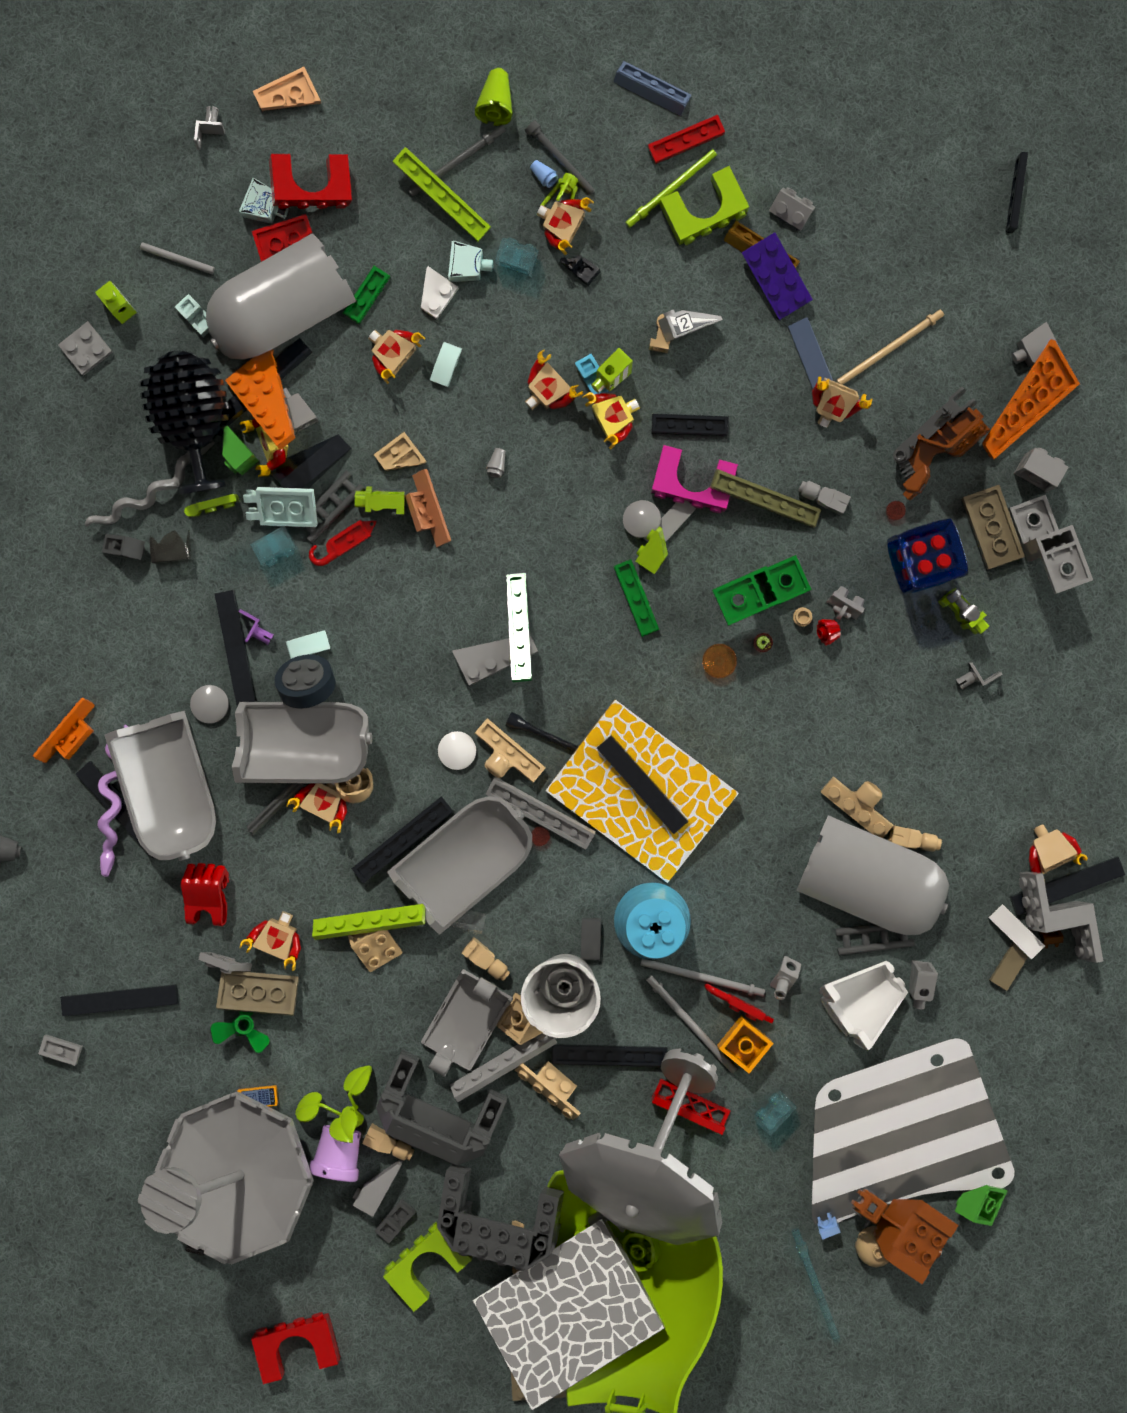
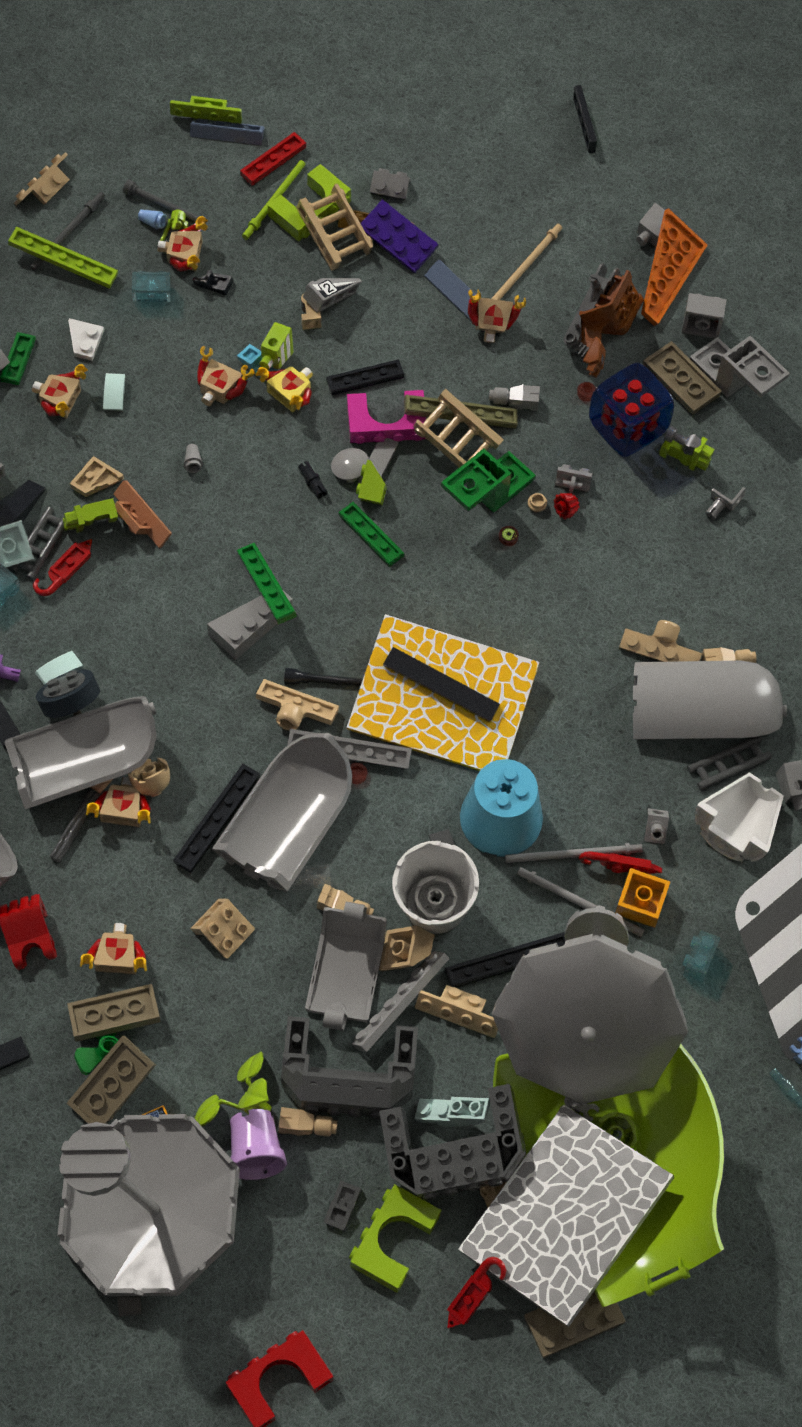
camera: 20 degrees left, 25 degrees down
(225, 963) = (67, 992): light grey wing -> none
(235, 1059) = (111, 1082): none -> dark tan plate
(368, 921) = (209, 900): lime plate -> none
(374, 1190) = (308, 1178): light grey slope -> none
(453, 97) = (48, 184): none -> tan bracket
(457, 750) = (243, 719): white dish -> none
(467, 263) = (105, 304): light aqua torso -> none
(472, 1340) = (473, 1293): none -> red plate
(495, 99) = (87, 174): lime cone -> none
(511, 1183) = (453, 1112): none -> light aqua slope
(601, 522) = (312, 479): none -> black pin
(640, 56) = (207, 109): none -> lime bracket
(699, 241) = (324, 240): none -> tan fence
(719, 660) = (473, 561): clear orange piece -> none
(761, 509) = (461, 414): none -> tan fence

